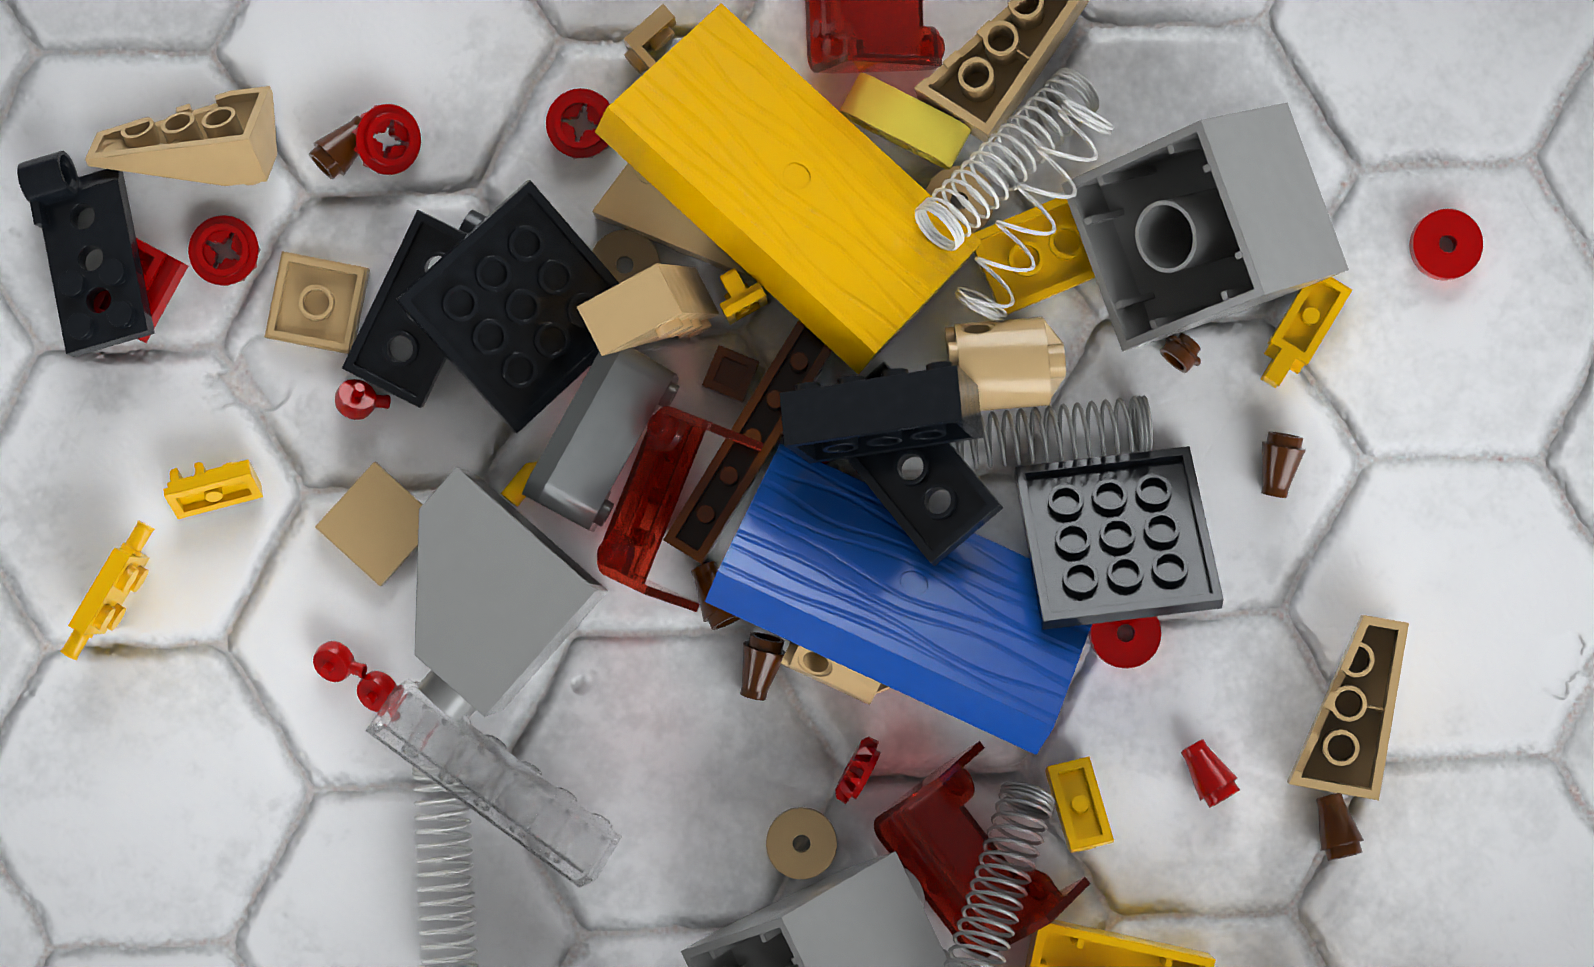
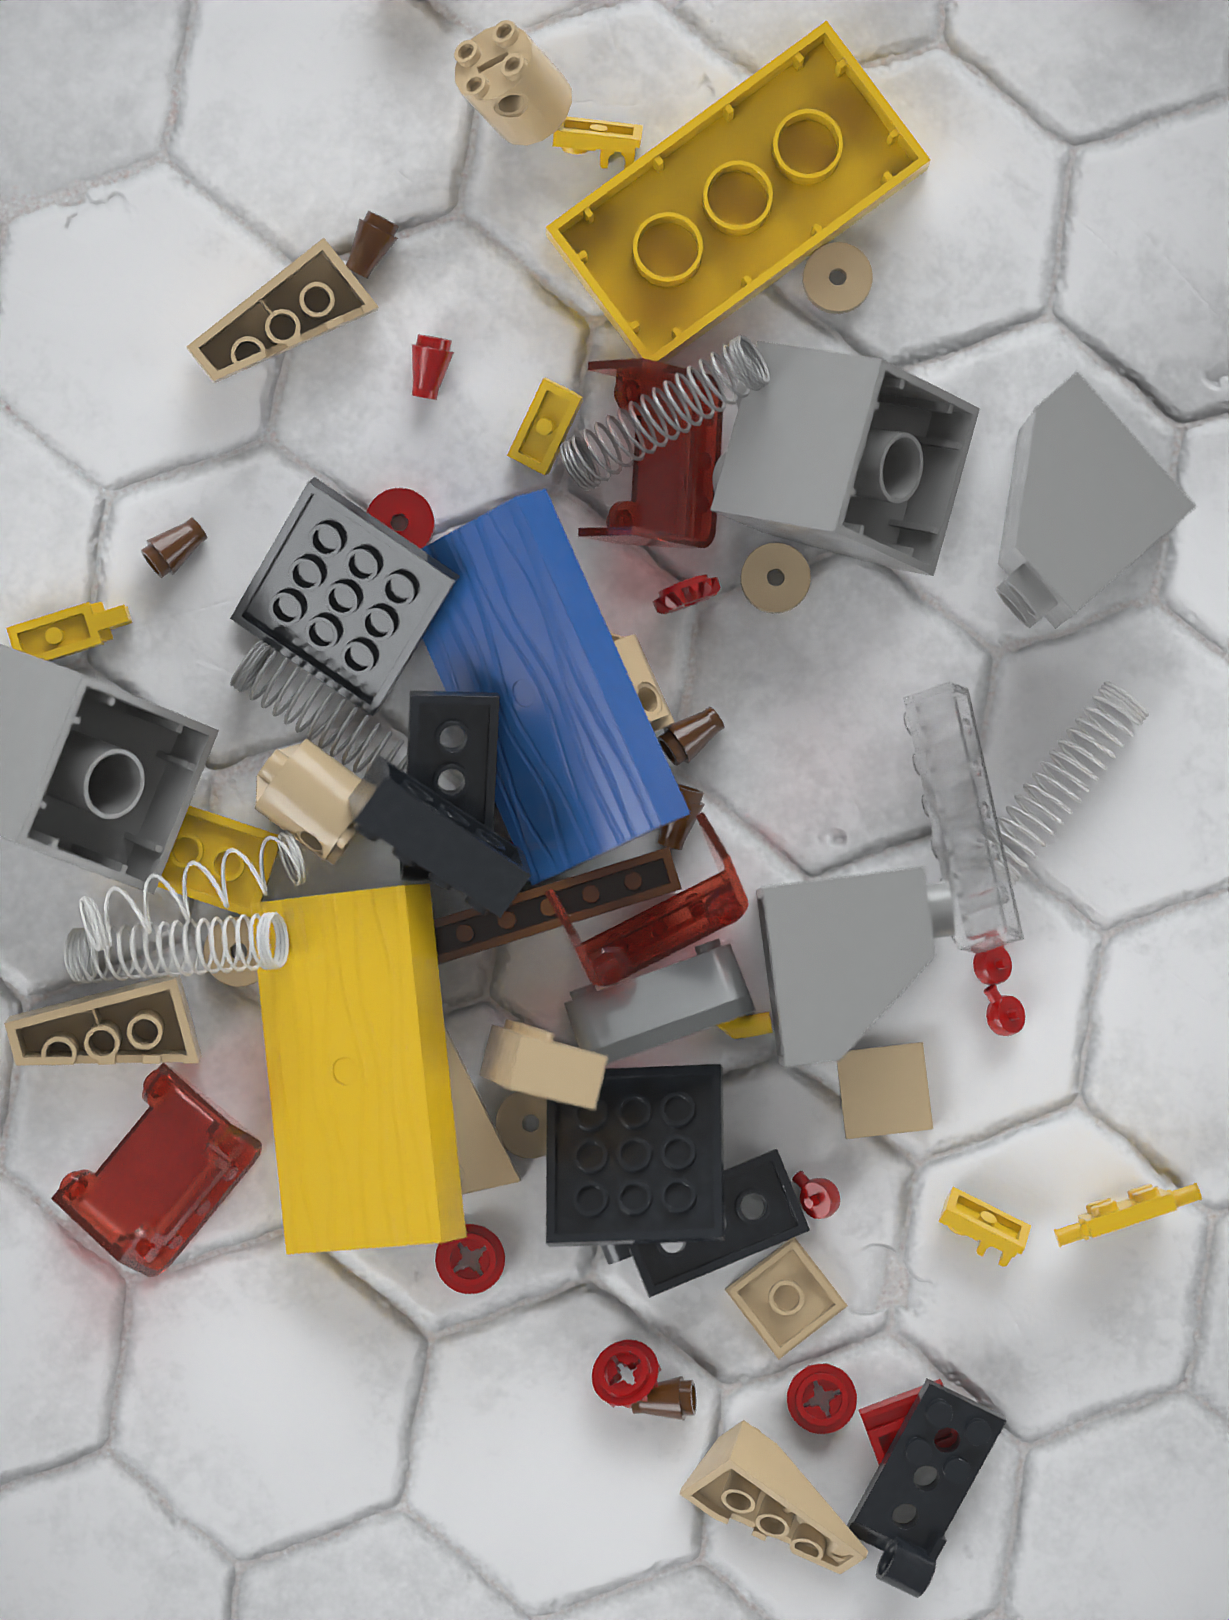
camera: 140 degrees left, 0 degrees up
(652, 32) = (356, 1280): tan bracket -> none
(730, 373) = (523, 971): reddish brown plate -> none
(741, 298) = (465, 1021): yellow plate -> none
(905, 121) = (226, 1046): light yellow beam -> none
(1181, 352) = (173, 692): reddish brown plate -> none

